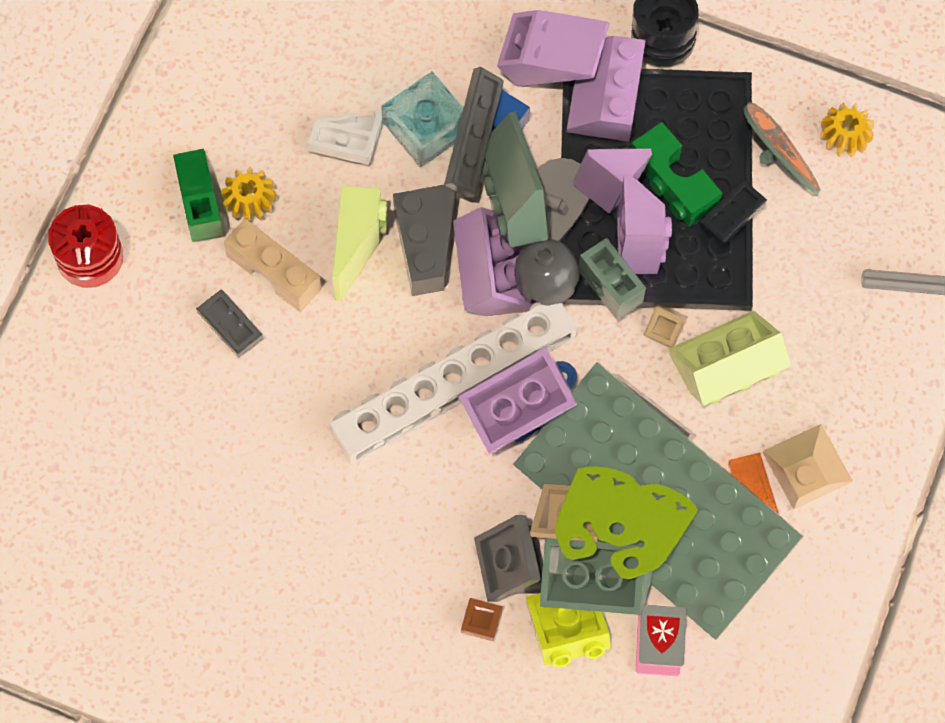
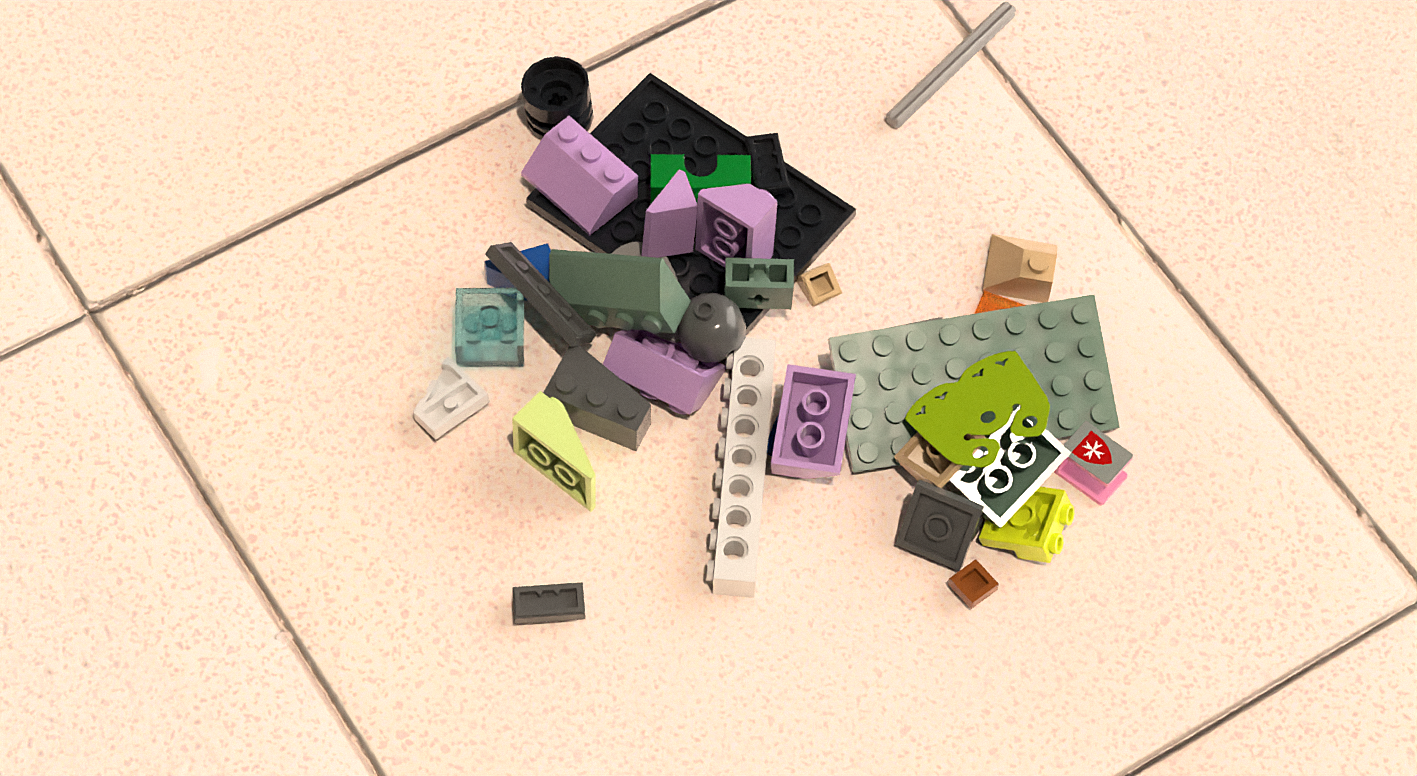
camera: 55 degrees left, 10 degrees down
(99, 254) = (383, 665): red wheel -> none
(198, 195) = (407, 547): green slope -> none
(249, 204) = (442, 521): yellow gear -> none
(260, 253) = (502, 533): tan arch -> none
(551, 47) = (510, 189): lavender slope -> none
(730, 357) = (886, 255): yellowish green slope -> none
(779, 146) = (734, 98): shield -> none
(858, 127) = (756, 43): yellow gear -> none

